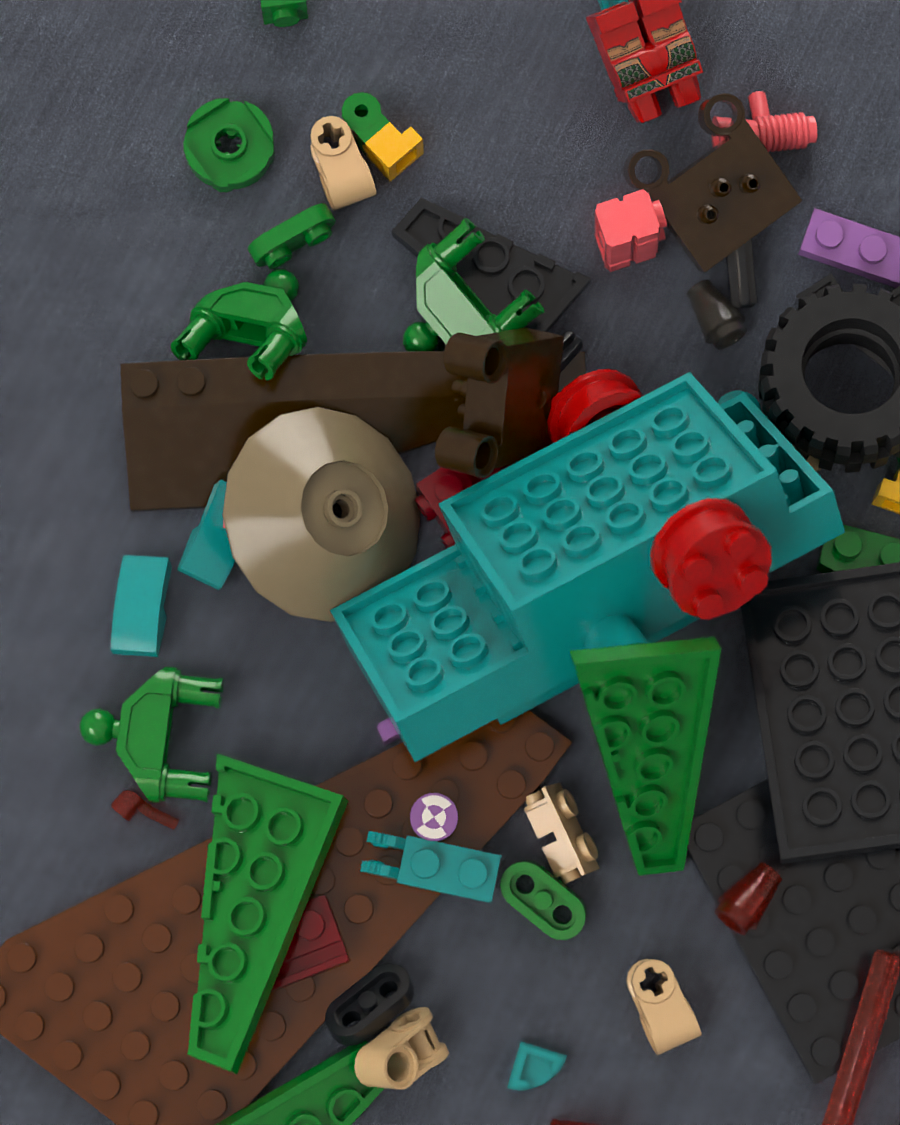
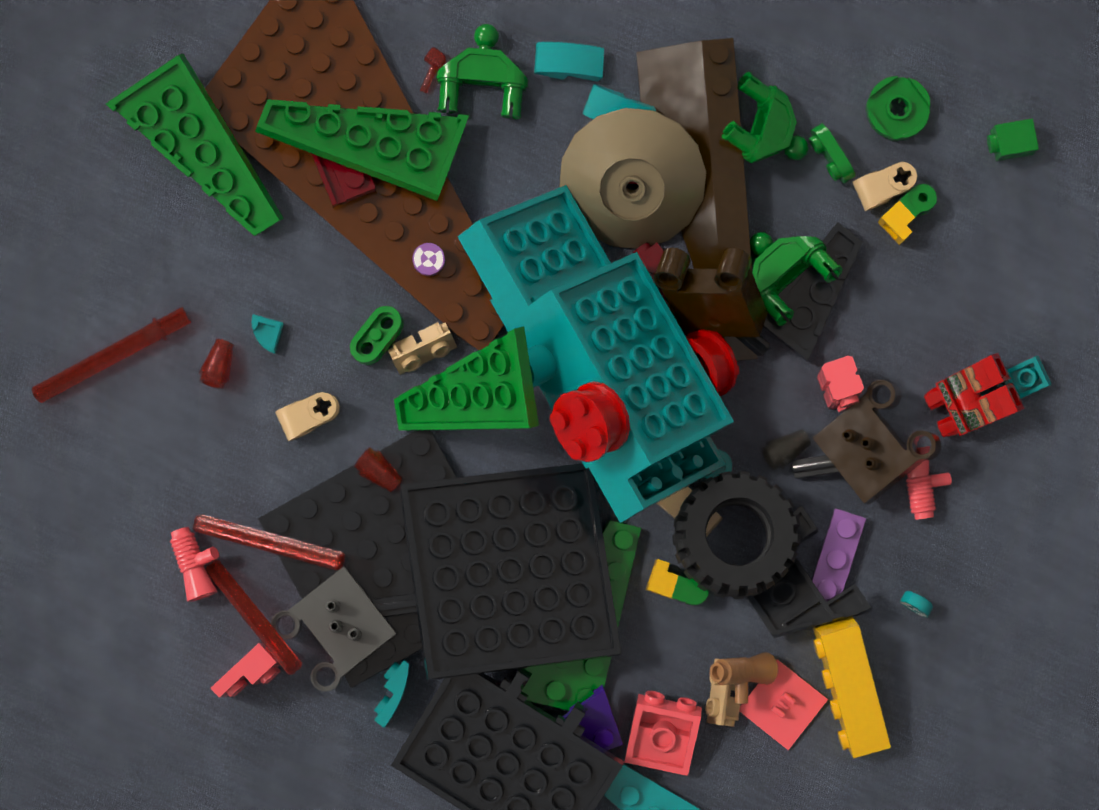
camera: 90 degrees right, 5 degrees up
(368, 1005) = (305, 221): black plate -> none
(401, 1052) = (278, 246): tan piece -> none
(437, 866) = (395, 262): teal hinge -> none

